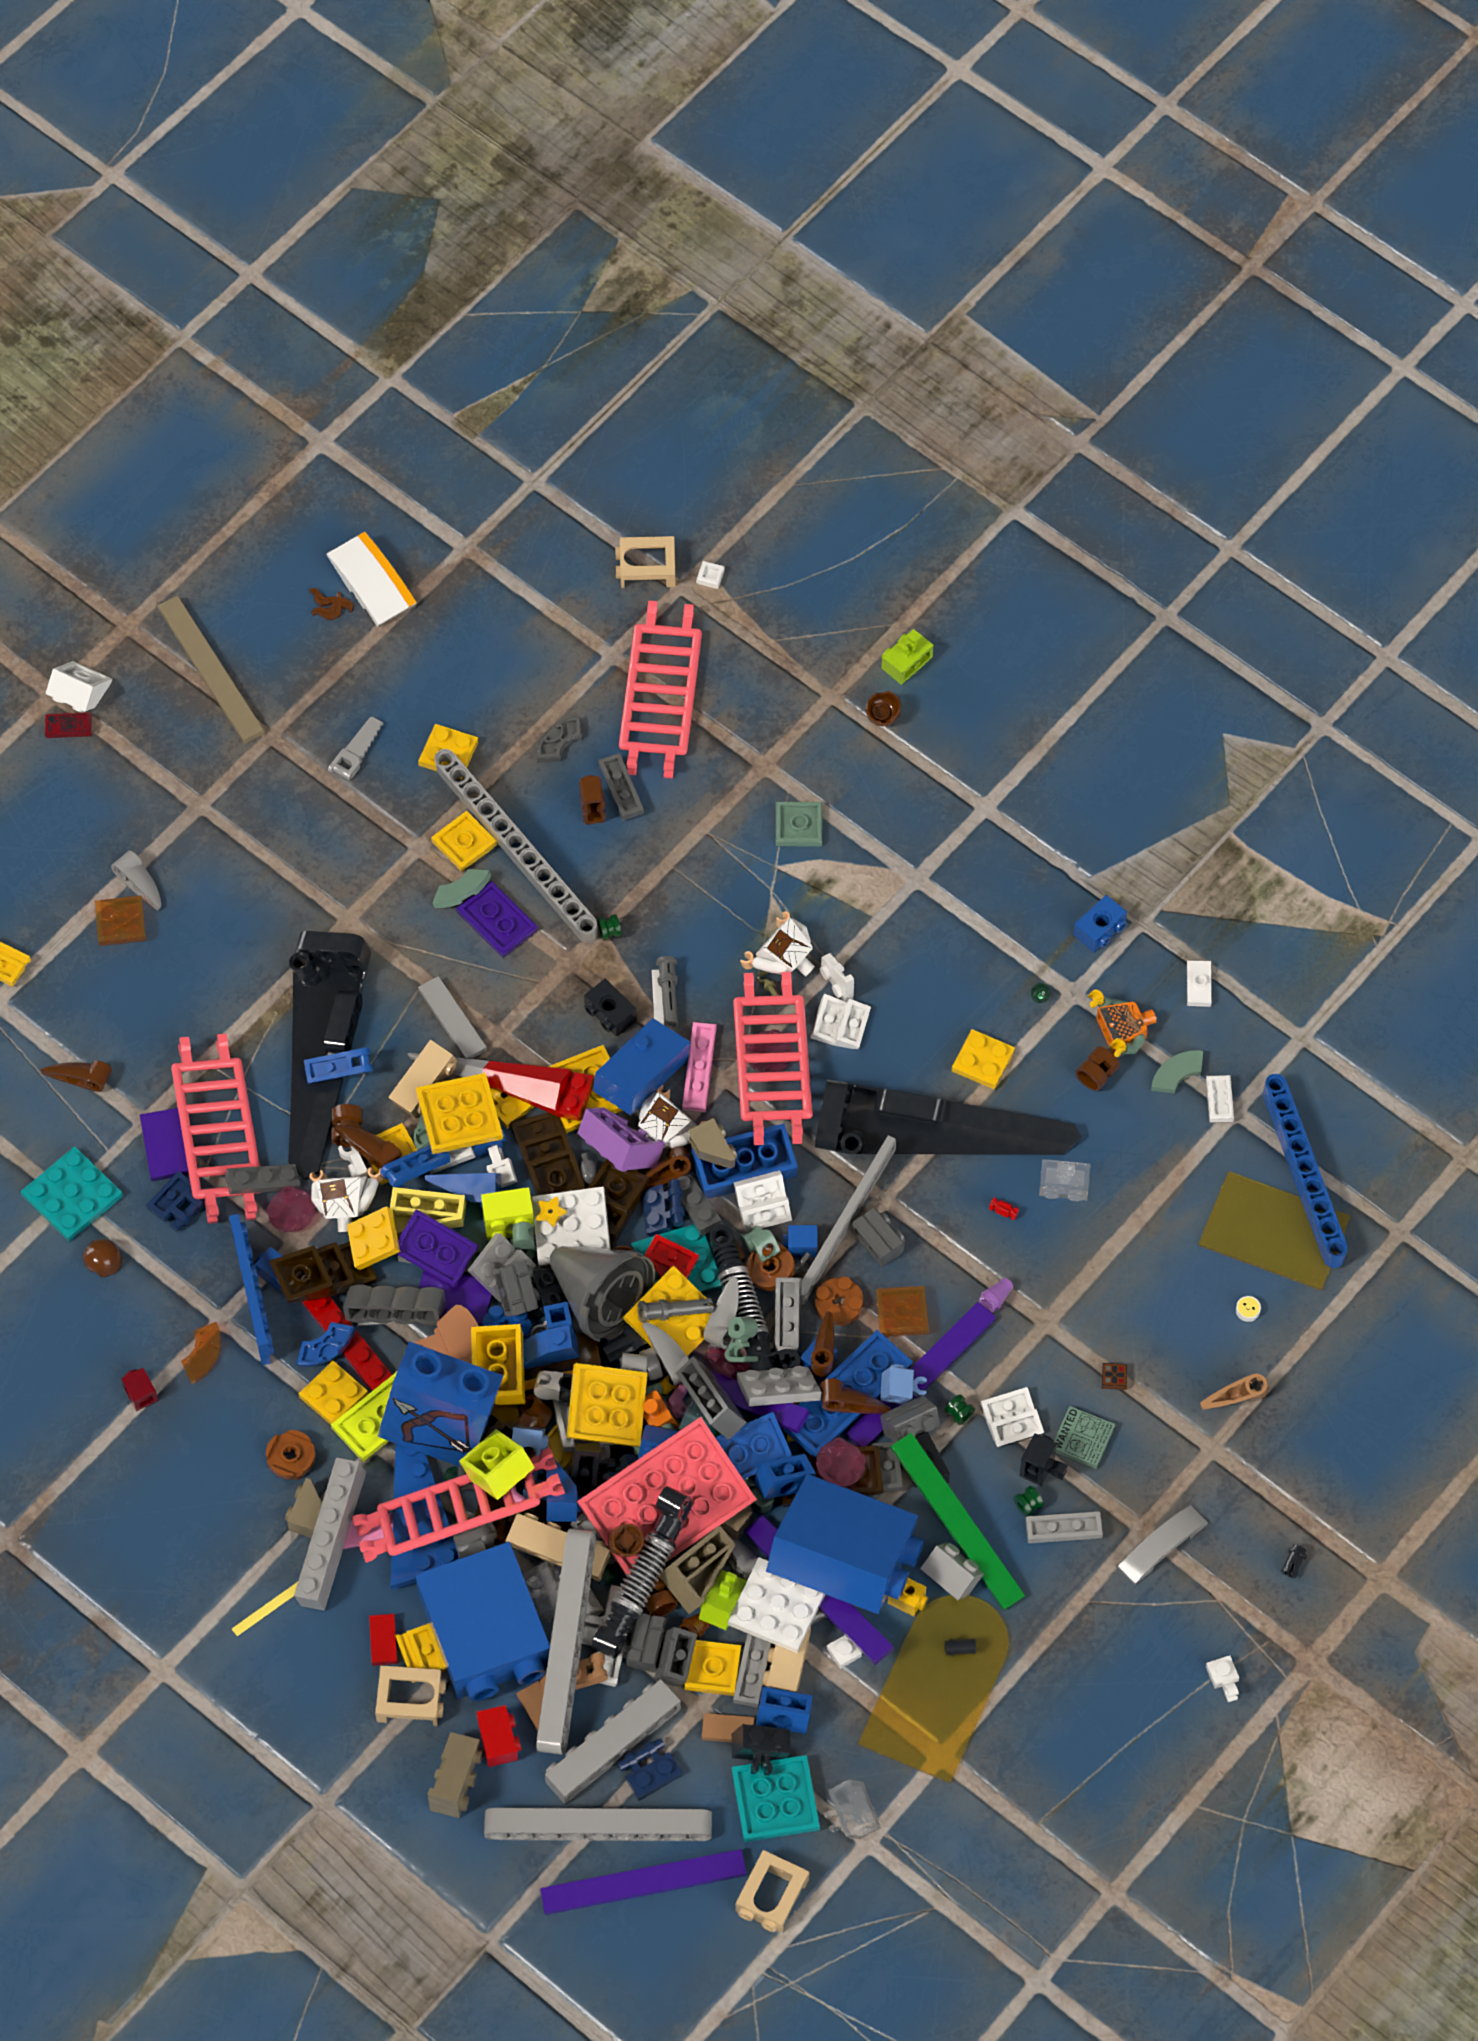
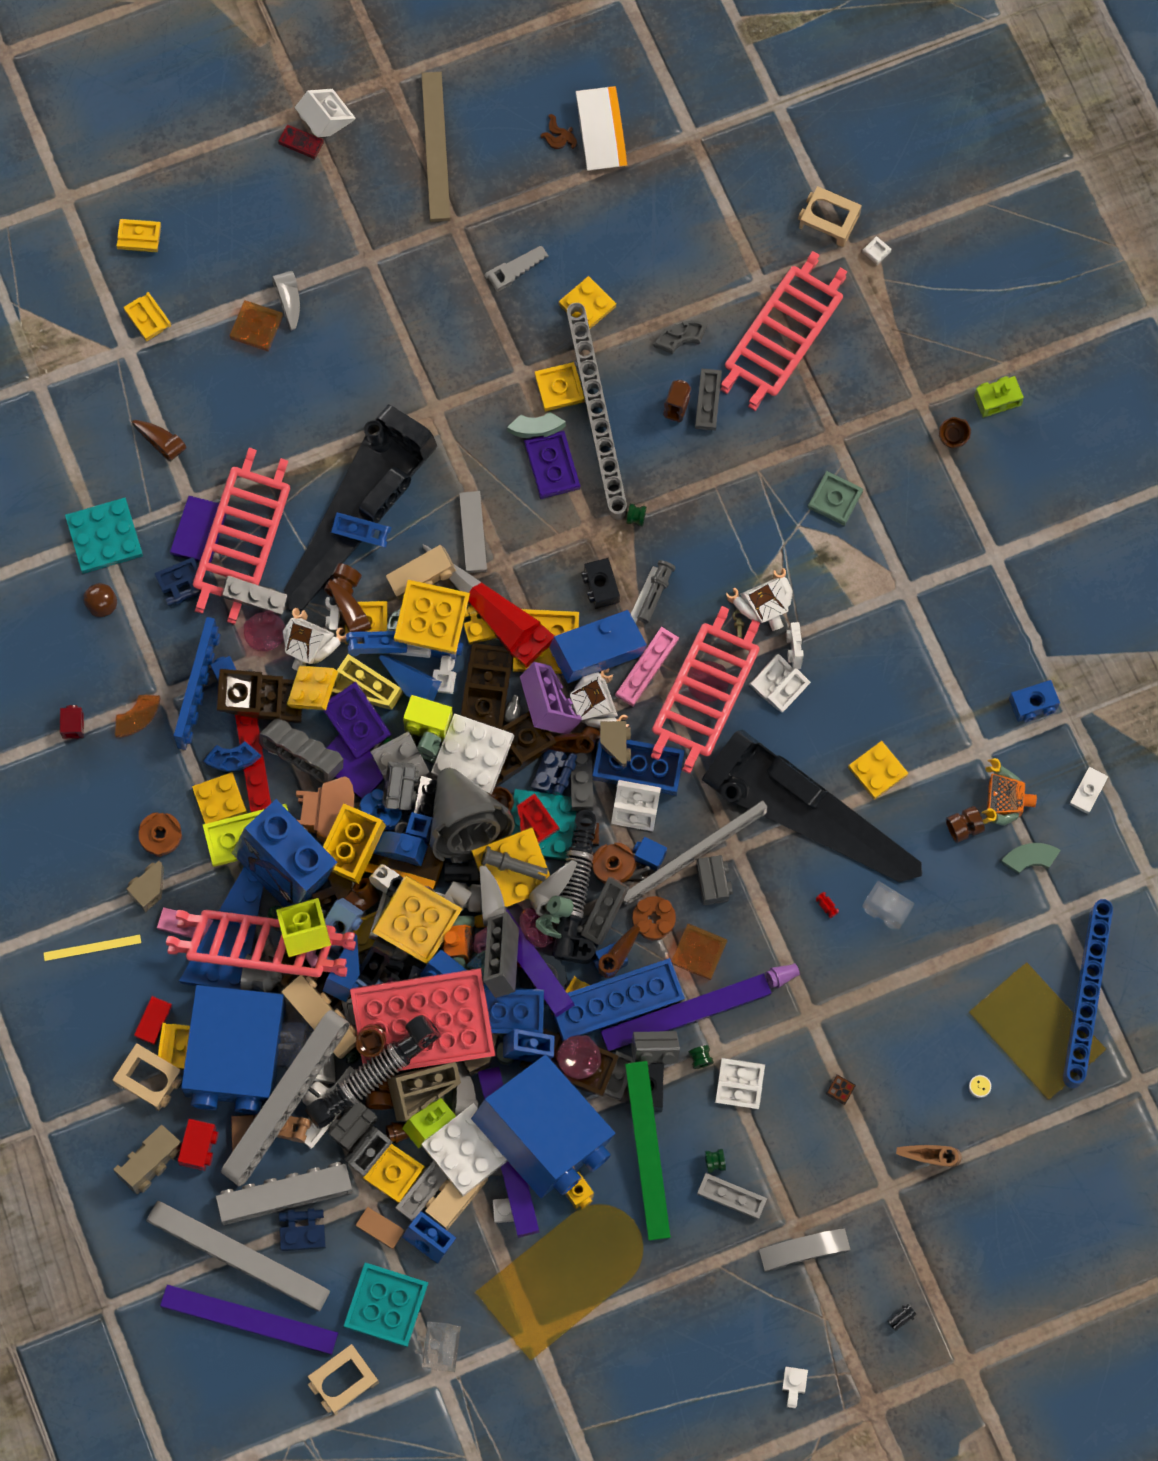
camera: 25 degrees right, 10 degrees up
(330, 1534) = (154, 915): light grey brick -> none
(553, 1217) = (459, 740): yellow plate -> none
(759, 1239) = (614, 836): sand green leg -> none
(760, 1745) = (395, 1257): black brick -> none
(778, 1386) = (562, 969): light grey plate -> none
(849, 1400) = (609, 1004): reddish brown piece -> none
(899, 1386) = (661, 1014): medium blue brick -> none
(952, 1570) = (622, 1189): light grey brick -> none
(959, 1647) = (595, 1254): black pin -> none
(1040, 1460) = (740, 1133): black brick -> none
(1042, 995) = (954, 739): clear green hinge -> none
(1083, 1437) = (788, 1128): sand green tile -> none
(1219, 1098) = (1052, 897): white plate -> none

